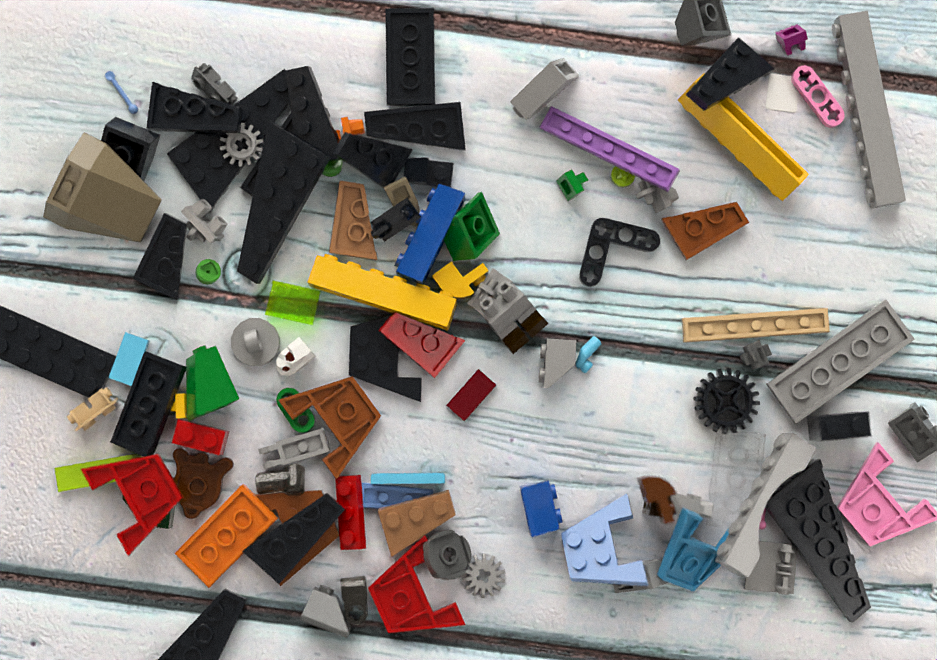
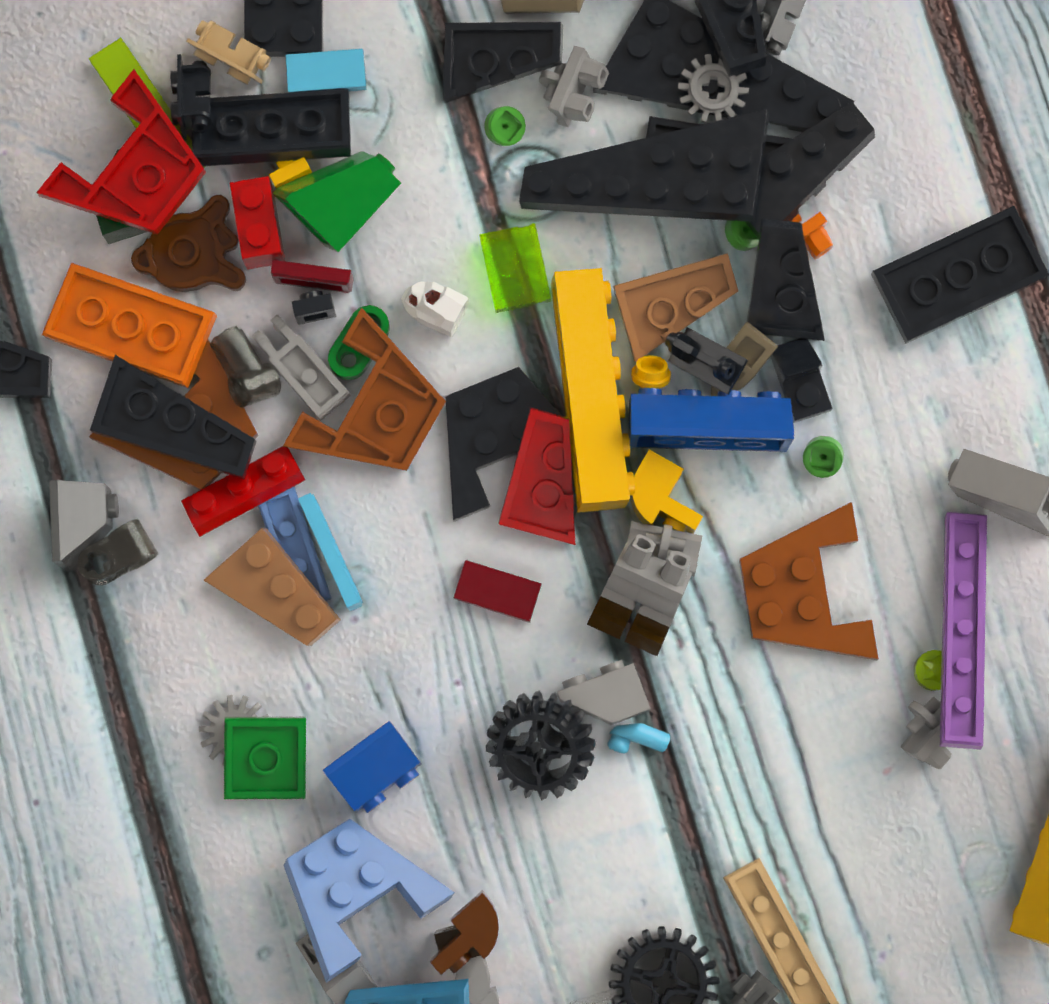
camera: 70 degrees right, 5 degrees down
(118, 446) = (191, 111): none -> black hinge
(245, 419) = (312, 276): none -> dark red tile
(255, 342) = (433, 240): light grey tile -> none
(263, 426) = (313, 307): none -> black plate
(387, 254) = (651, 372): none -> yellow plate
(403, 600) = (148, 624): red wing -> none
(426, 125) = (867, 338): black wing -> none
(434, 555) = (241, 682): dark grey plate -> none
(471, 230) = (744, 477): green slope -> none
(478, 180) = (823, 456): none -> bright green tile
(506, 565) = (265, 757): none -> green tile
(545, 234) = (789, 592): none -> dark orange wing
(568, 397) = (510, 749): none -> black gear
(571, 184) = (883, 598): green tile -> none
(604, 241) = (820, 687): black beam -> none
(705, 227) = (911, 829): dark orange wing -> none

